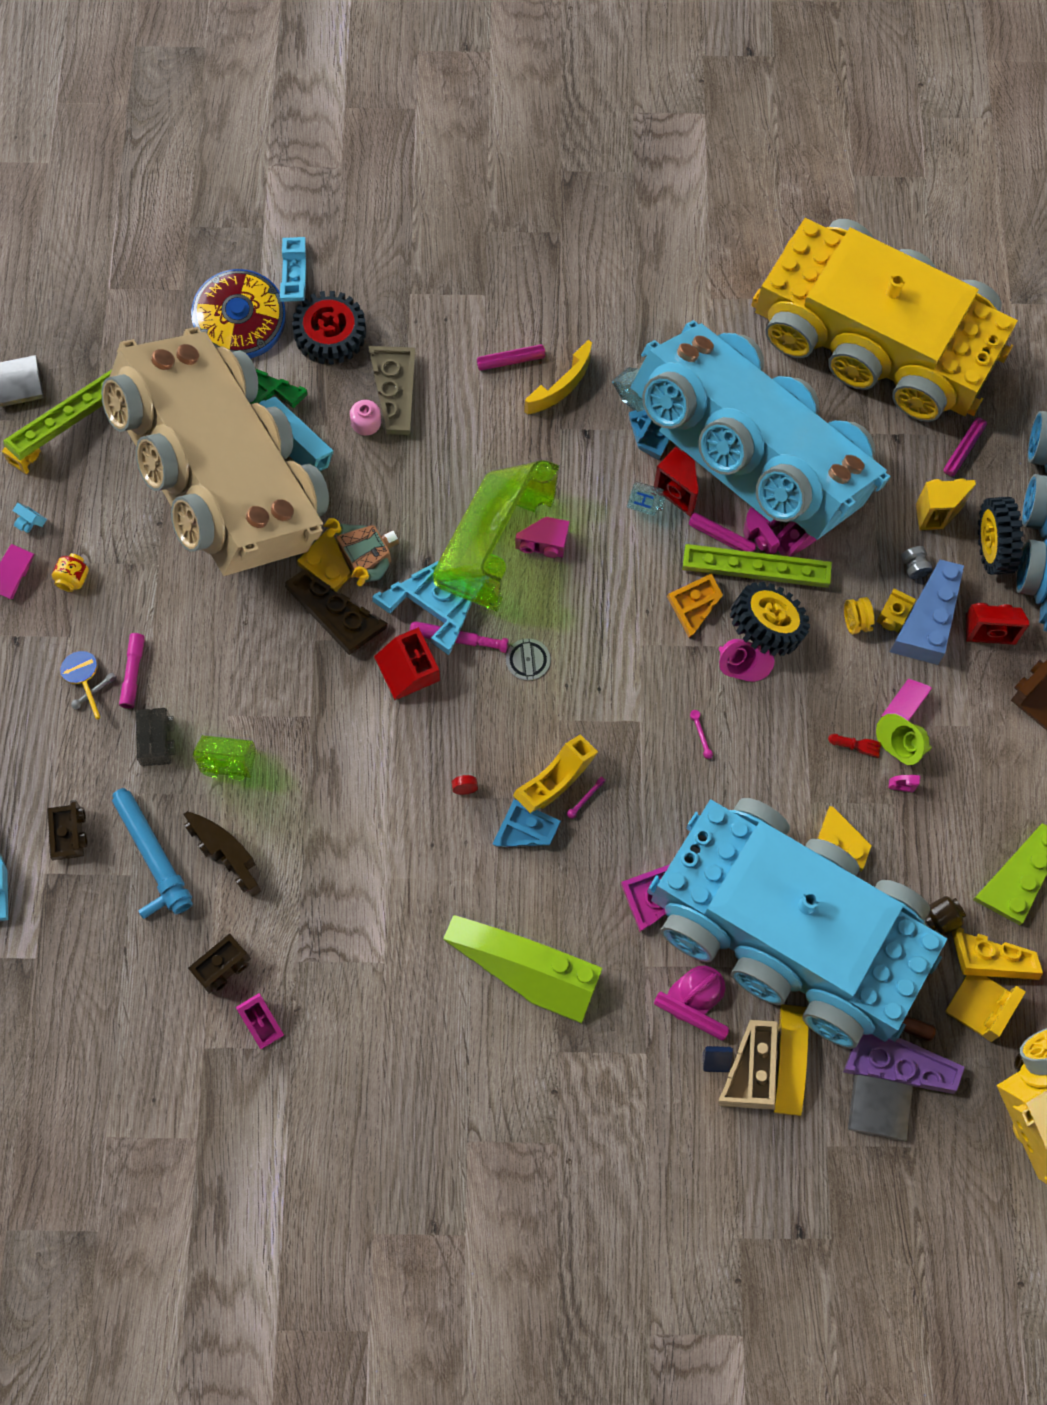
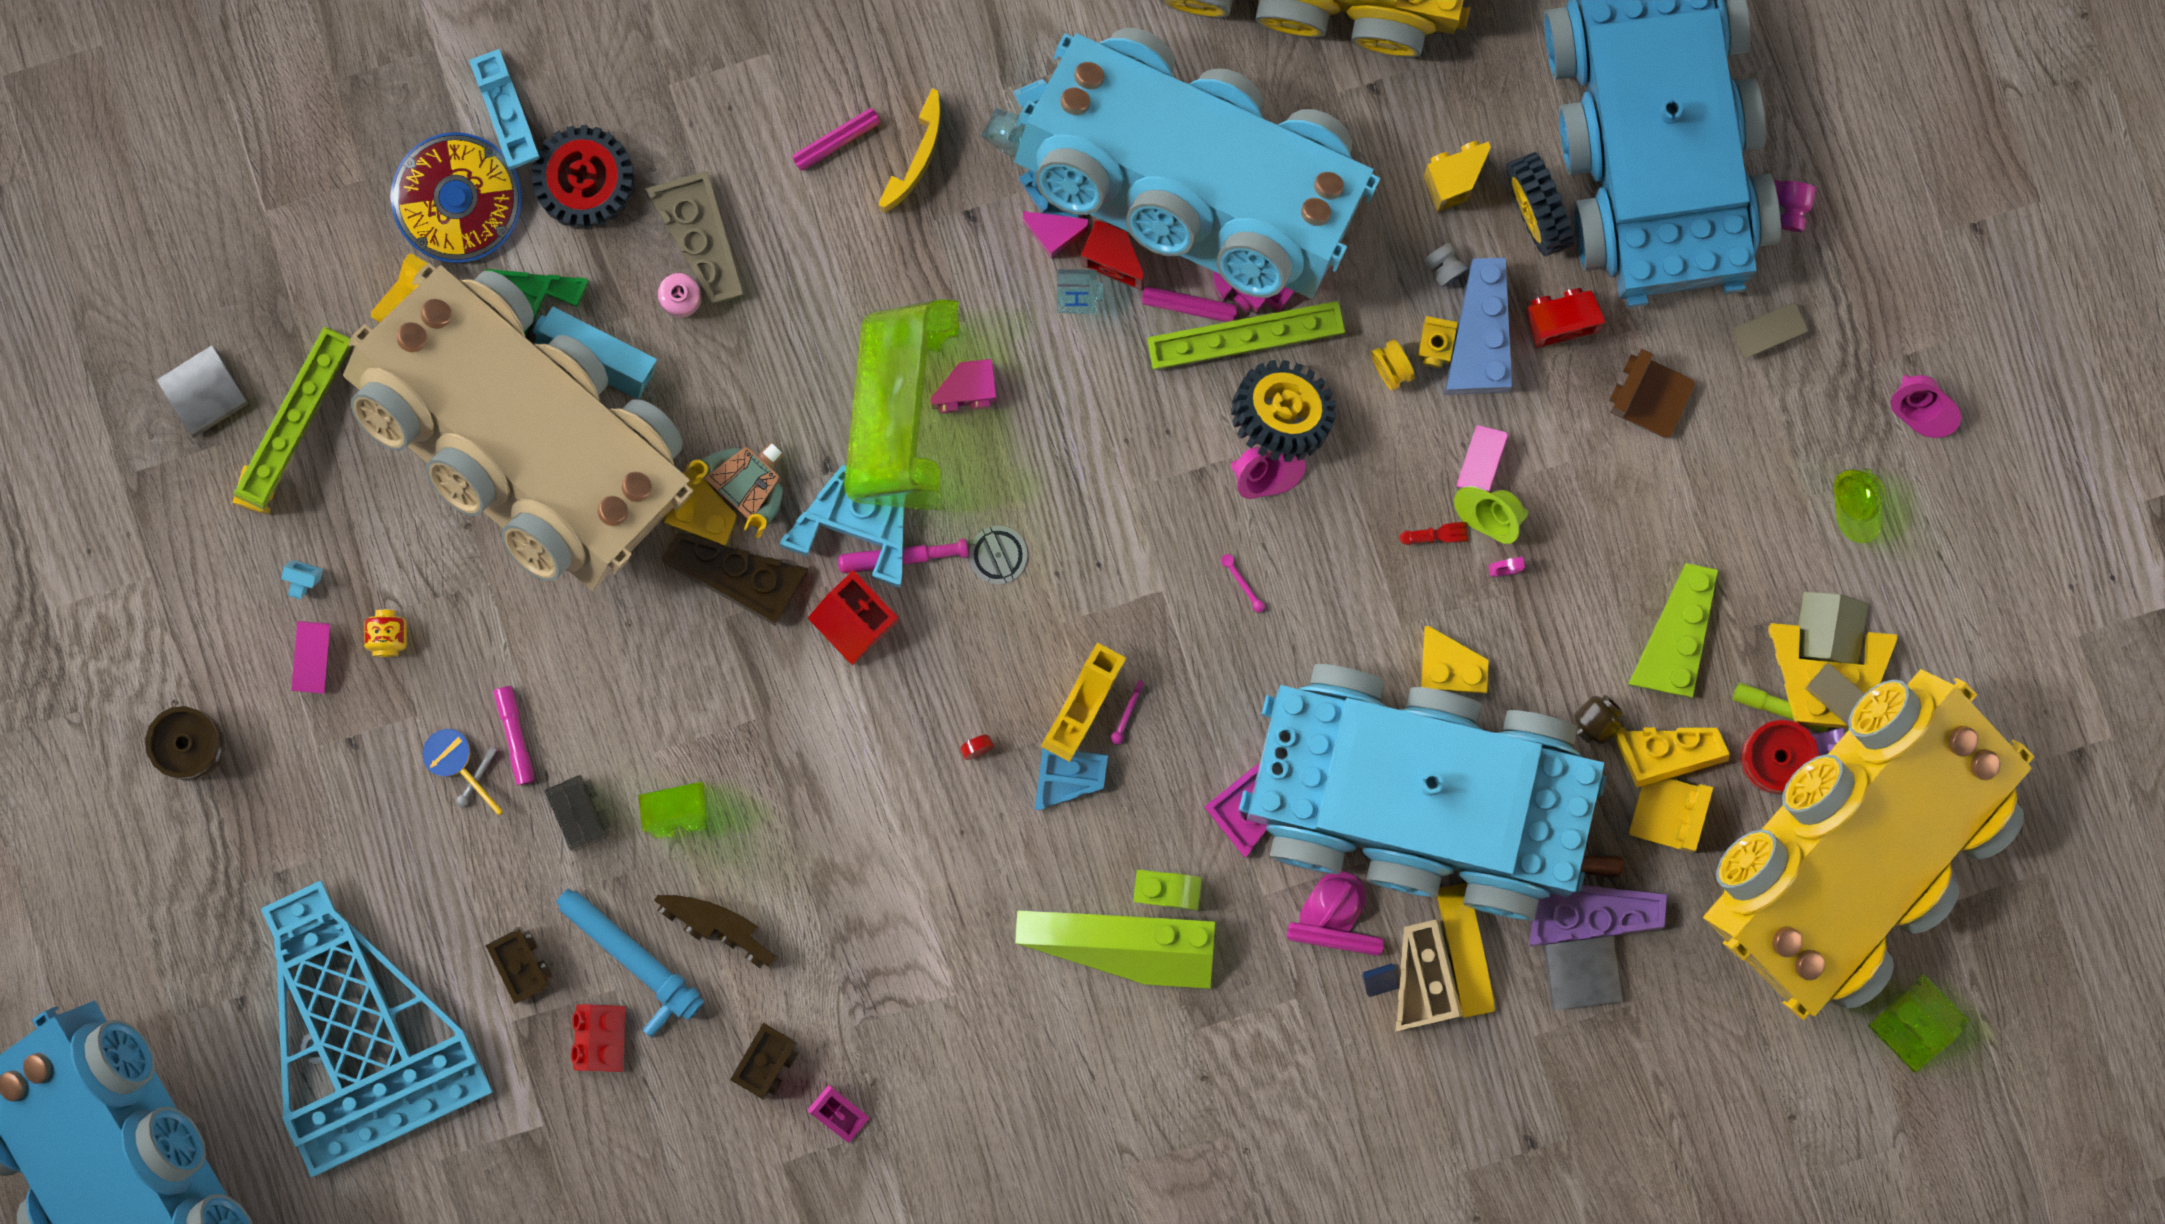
camera: 15 degrees left, 15 degrees up
(103, 904) = (598, 1038): none -> red bracket
(576, 933) = (1167, 890): none -> lime brick
(641, 456) = (1054, 231): none -> dark pink slope
(695, 602) = (1183, 412): light orange wing -> none
(965, 447) = (1465, 74): dark pink axle -> none

